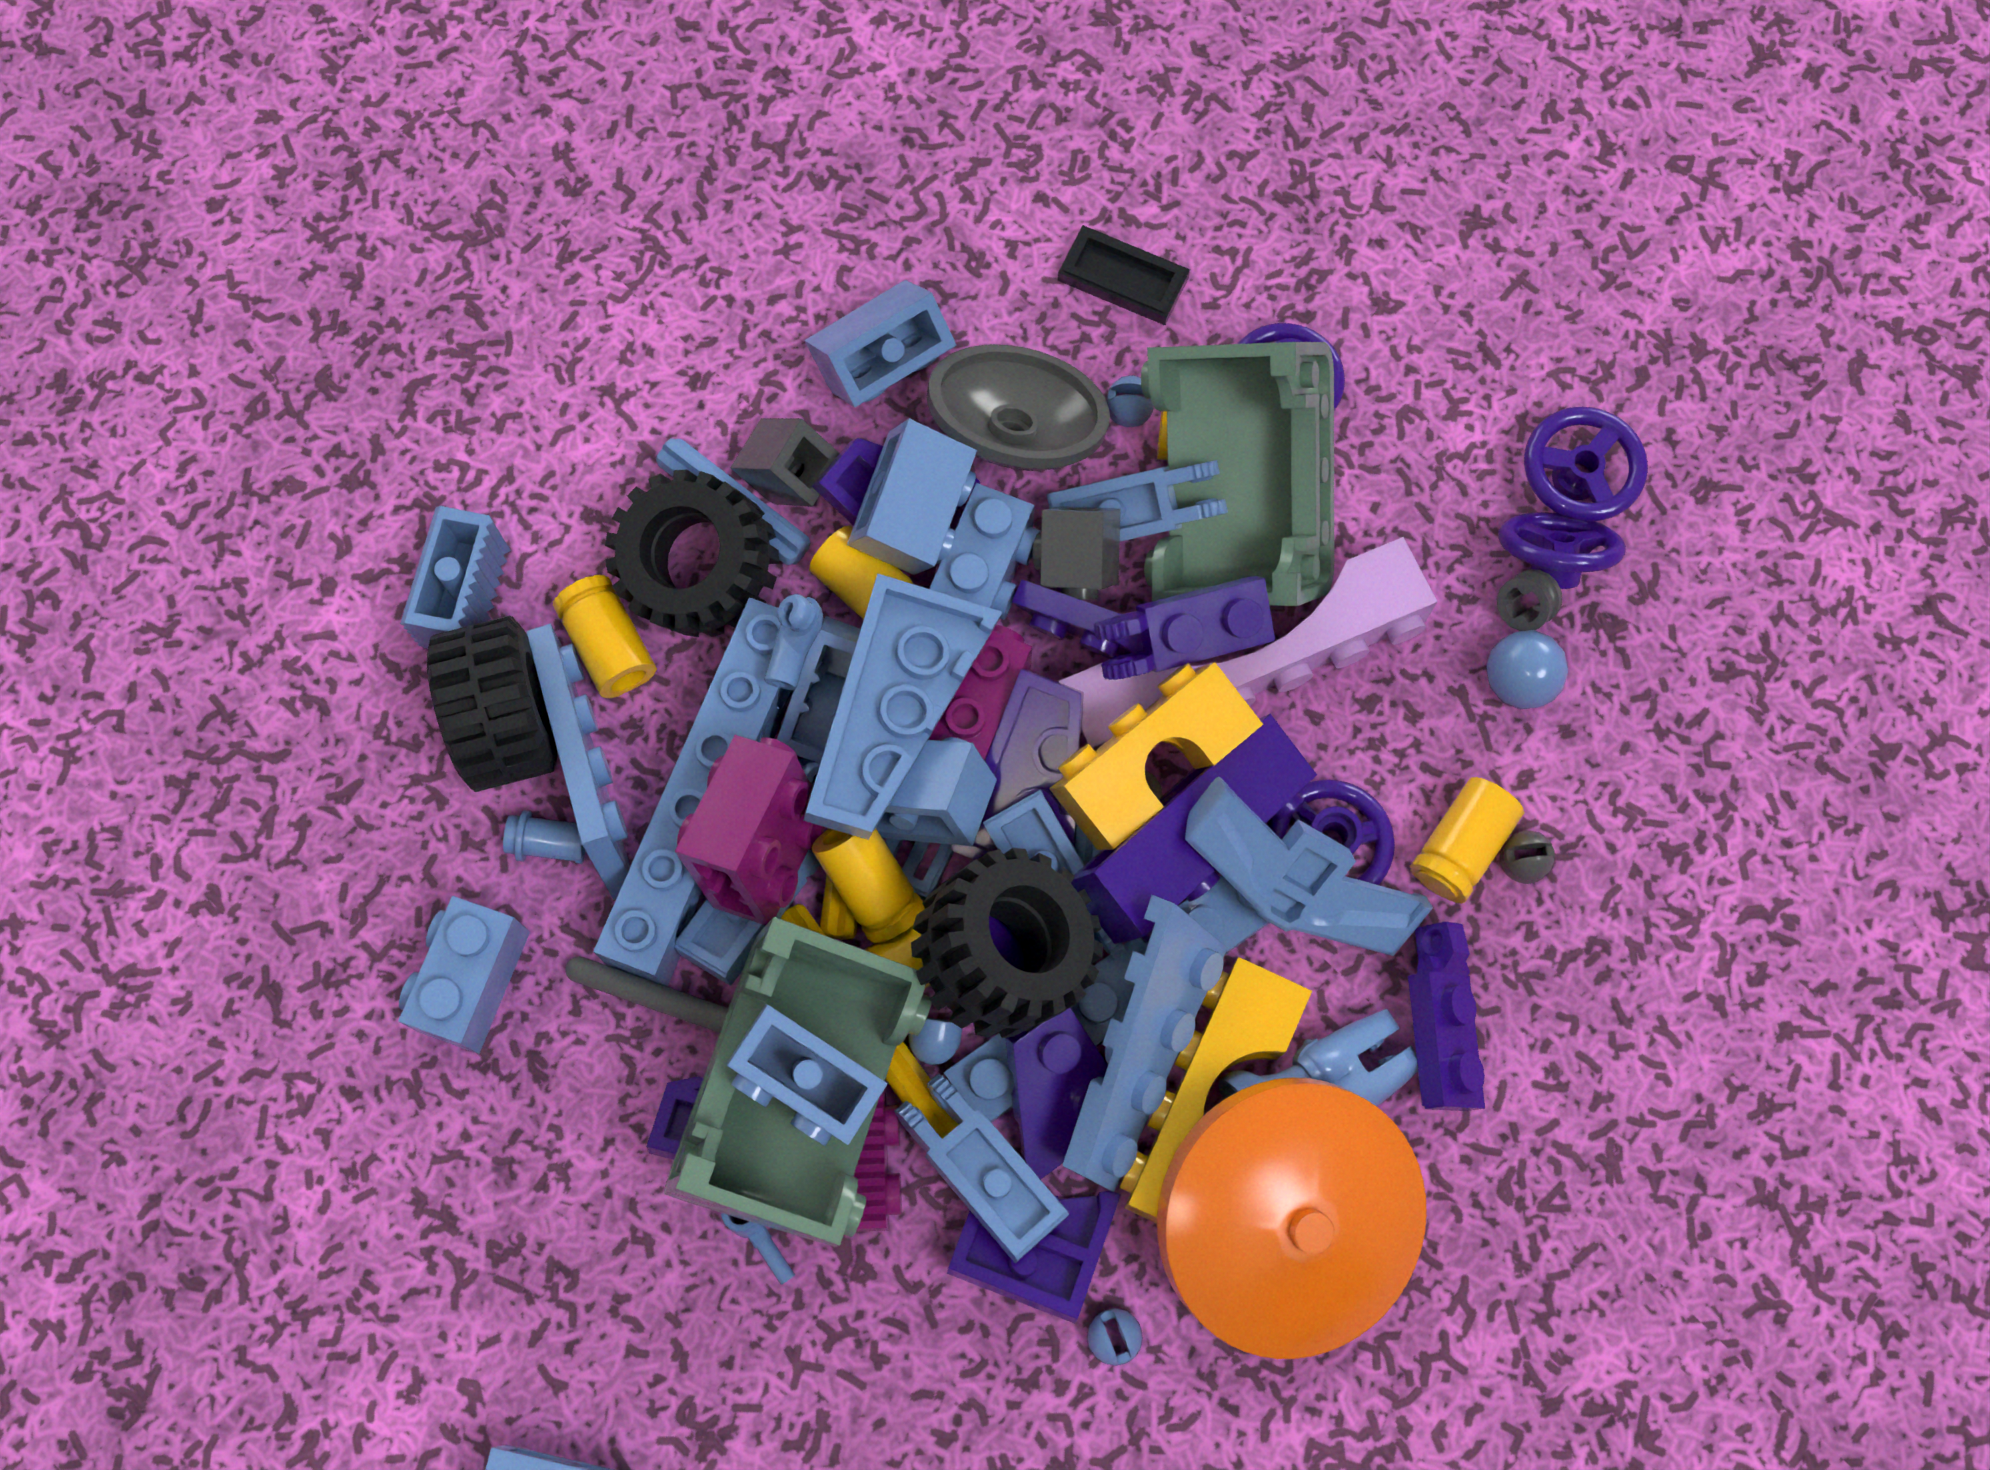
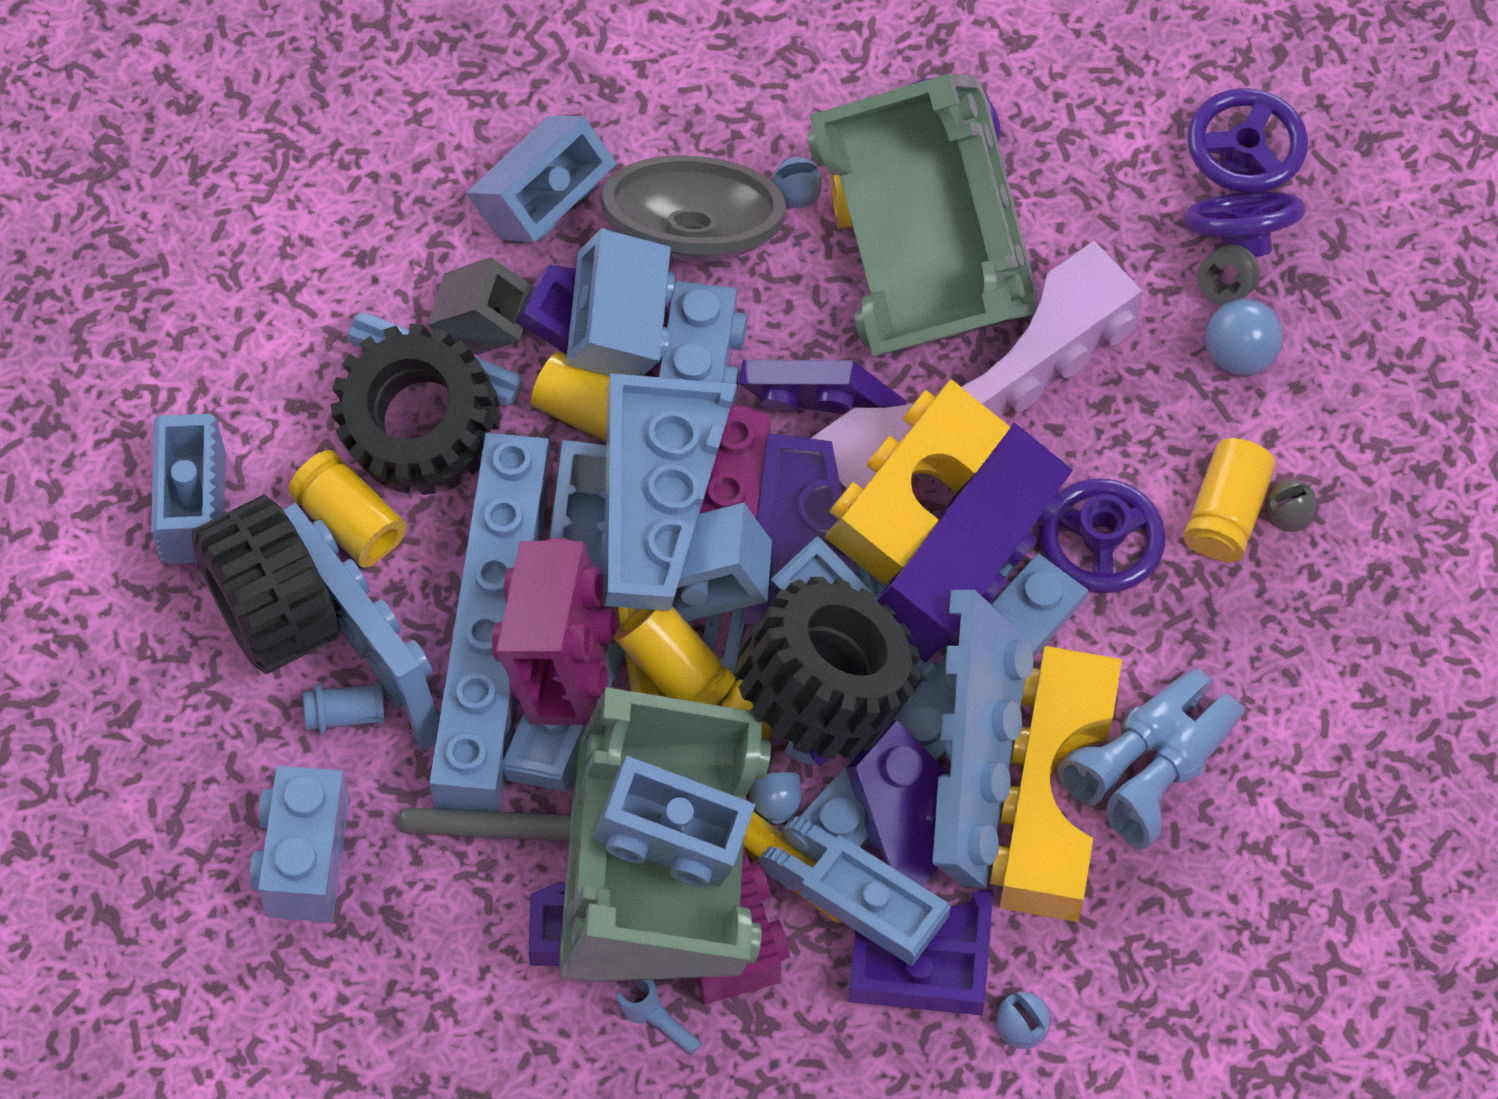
camera: 15 degrees left, 10 degrees down
(800, 624) = (546, 444): medium blue arm -> none
(1078, 550) = (789, 319): dark grey brick -> none
(1123, 275) = (757, 68): black tile -> none
(1145, 499) = (826, 273): medium blue hinge -> none
(1190, 627) = (920, 358): dark purple hinge -> none
(1291, 1218) = (1159, 860): orange dish -> none
(1301, 878) = (1082, 560): medium blue plate -> none
(1445, 1021) = (1254, 663): dark purple hinge -> none

